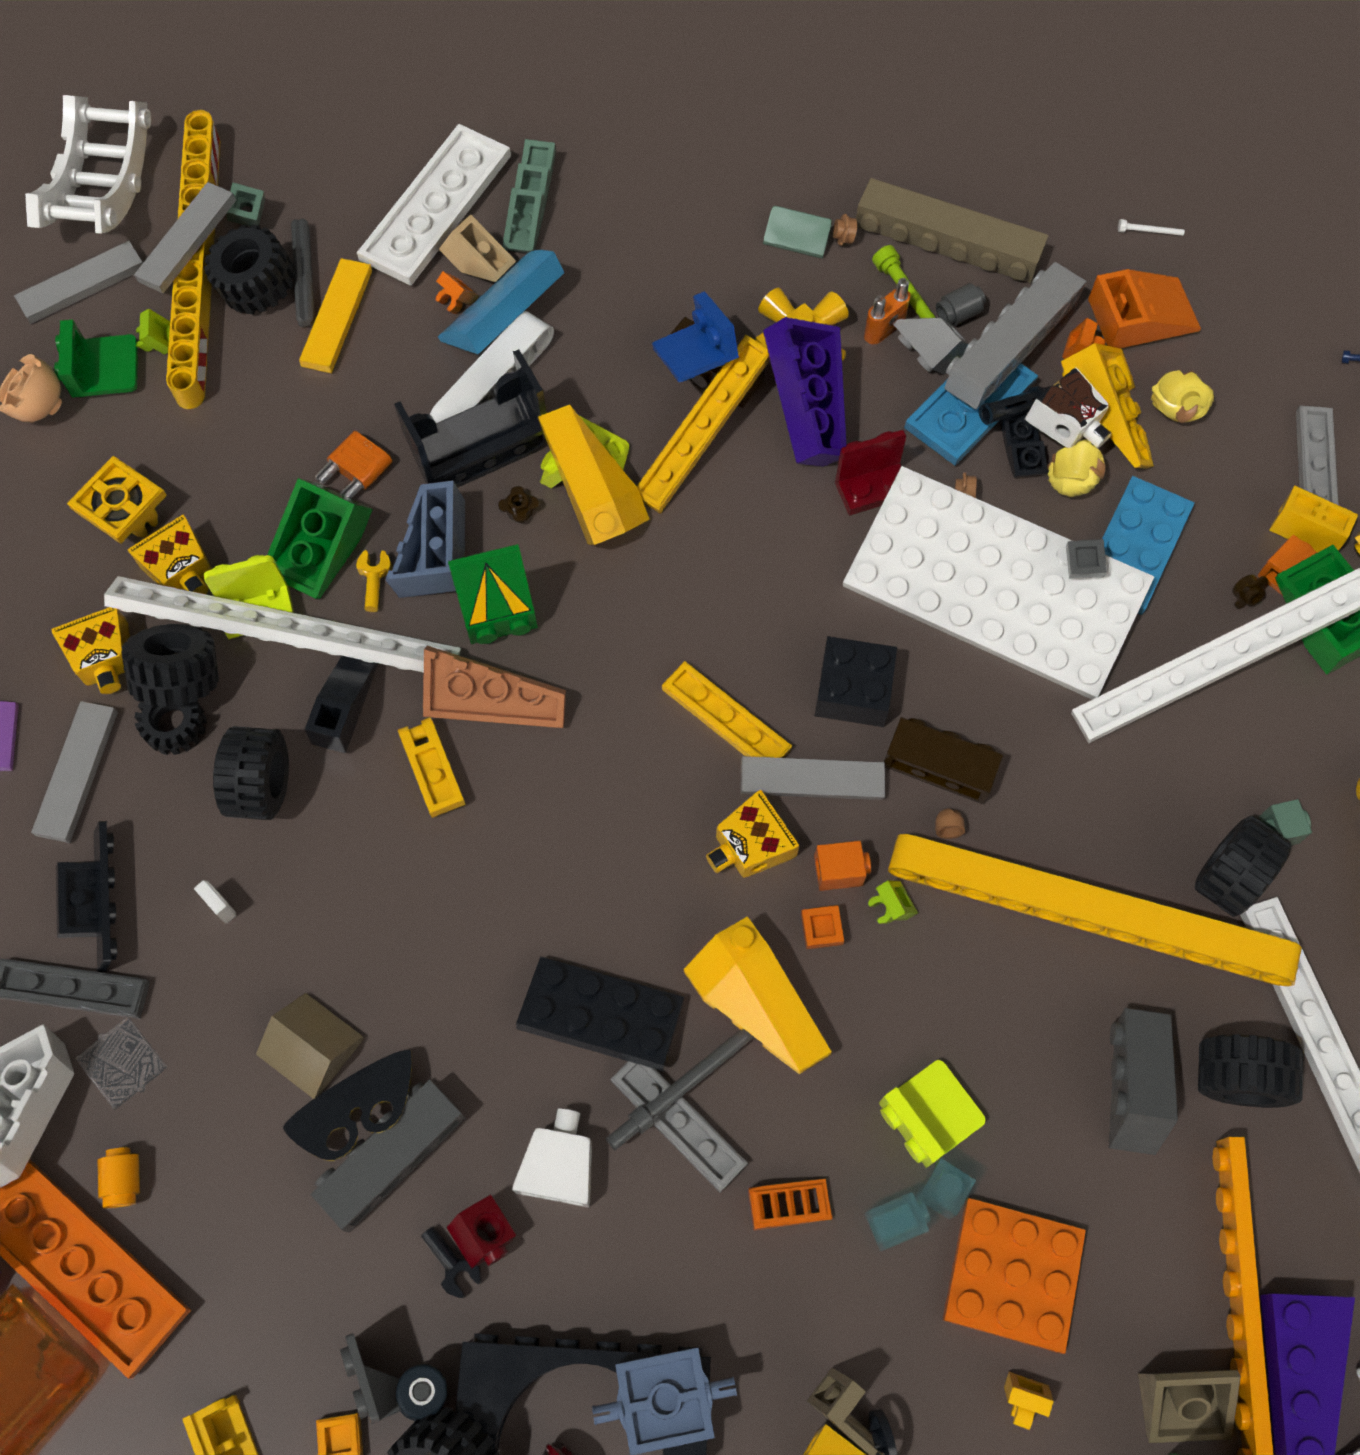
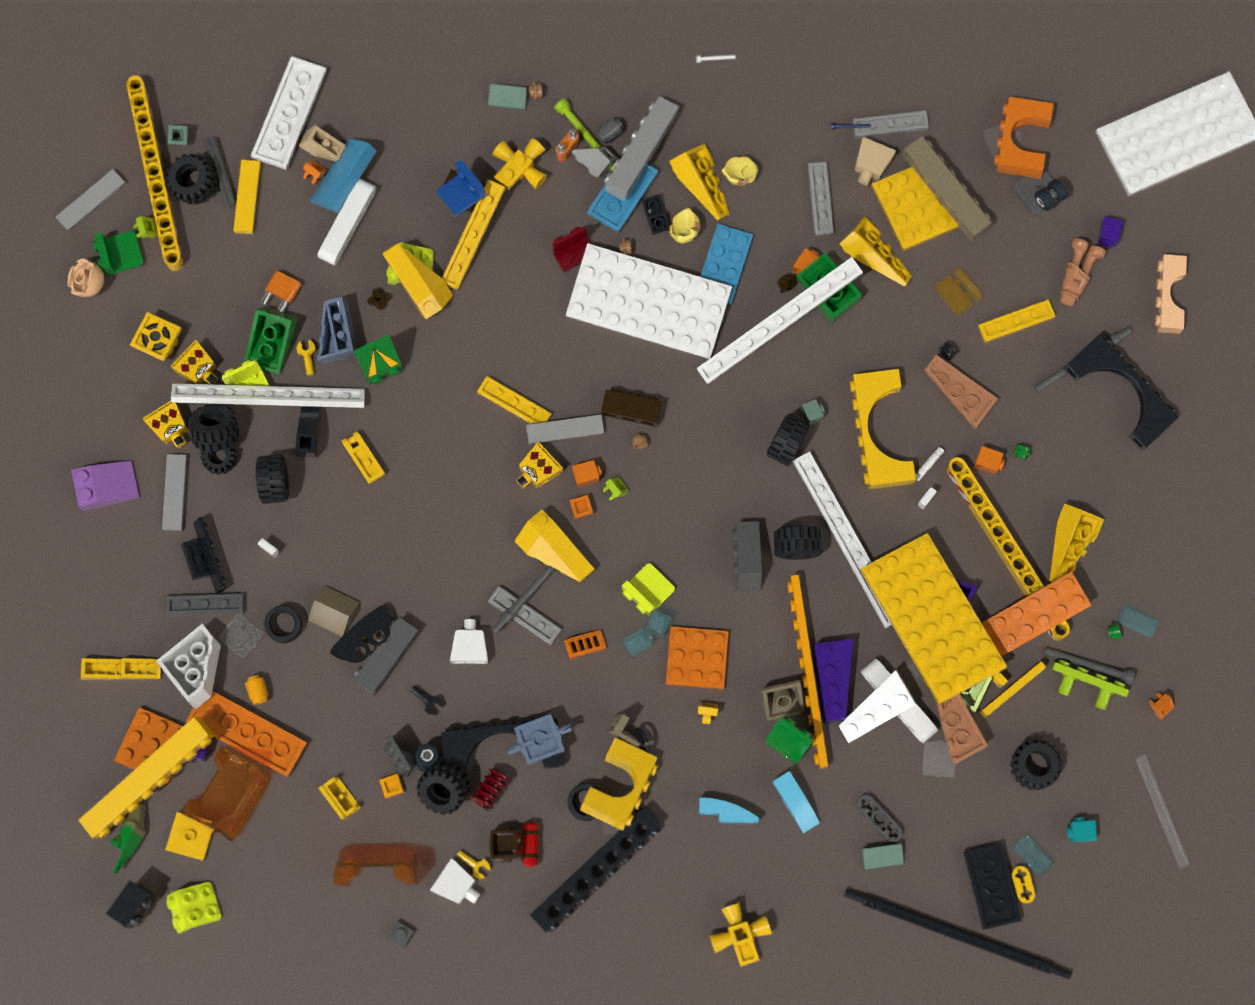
camera: 10 degrees left, 10 degrees up
(58, 199) = (64, 131): white fence -> none
(184, 1034) = (279, 610): none -> black tyre
(185, 237) = (150, 166): light grey tile -> none
(479, 692) = (382, 413): nougat wing -> none
(481, 436) = (349, 263): black windscreen -> none
(487, 1217) = (441, 676): dark red brick -> none
(529, 196) = (344, 98): sand green slope -> none
(600, 1013) = (476, 569): black plate -> none
(810, 387) = (530, 205): dark purple wedge -> none
(856, 681) = (579, 372): black brick -> none
(950, 230) = (597, 81): dark tan brick -> none
(997, 410) = (652, 190): black pin -> none
(1071, 411) = (677, 194): torso -> none
(1082, 337) = (681, 143): orange tile -> none
(1086, 558) = (692, 284): dark grey plate -> none
(1096, 910) = (715, 474): yellow beam -> none
(1140, 308) = (714, 115): orange slope -> none
(1313, 520) = (818, 236): yellow hinge -> none

